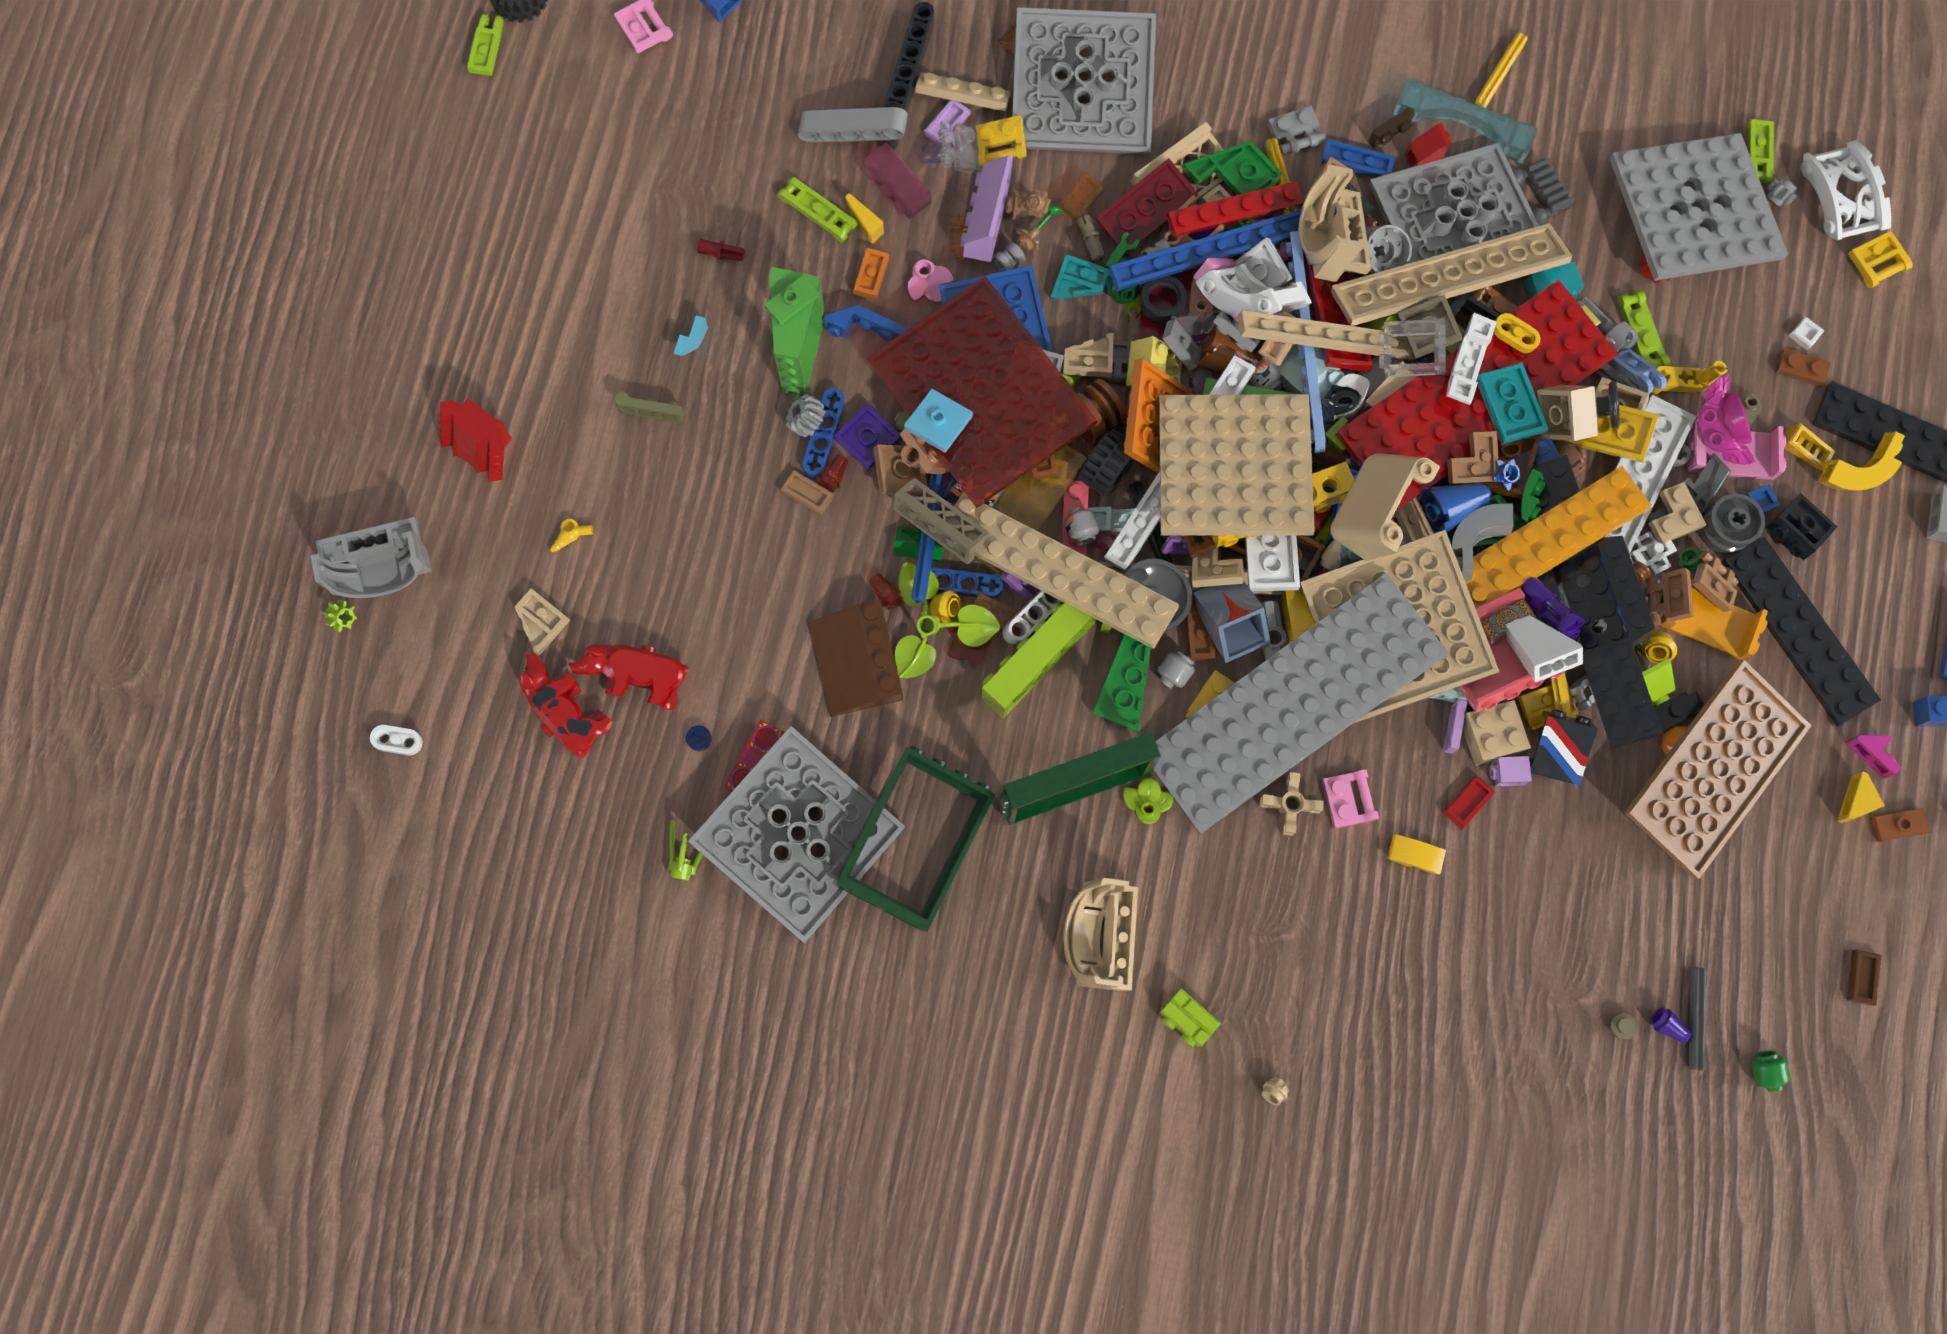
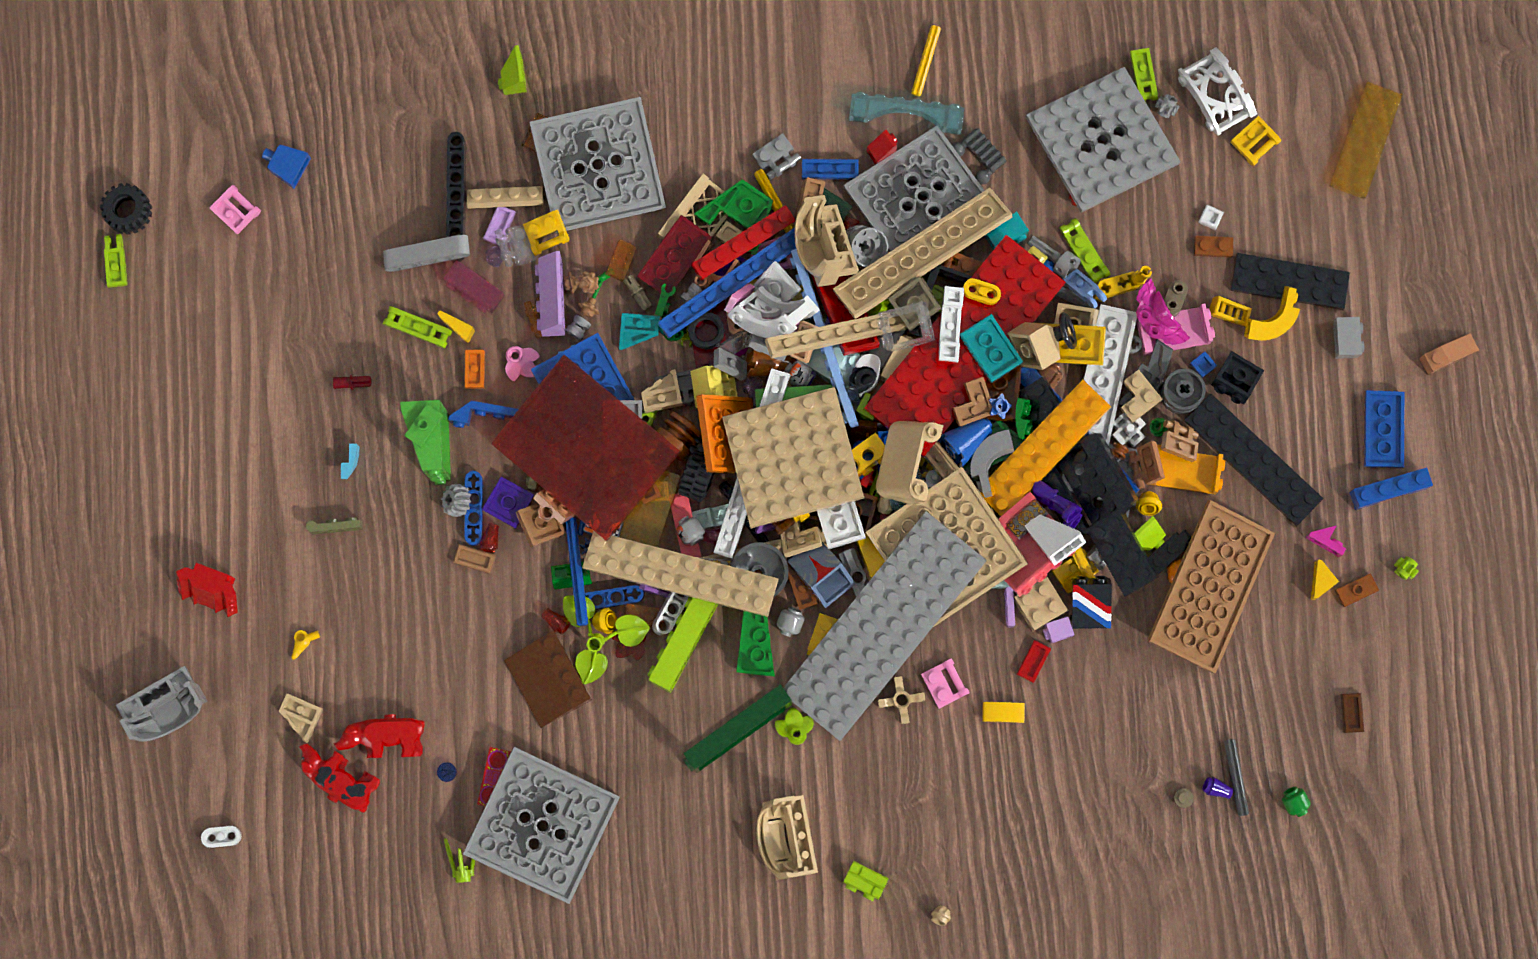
camera: 10 degrees left, 5 degrees up
(332, 615) = (148, 754): lime gear -> none
(934, 522) = (580, 564): dark tan fence -> none
(938, 420) = (559, 481): medium azure plate -> none
(957, 780) = (663, 811): dark green window -> none
(1386, 131) = (845, 142): dark brown plate -> none

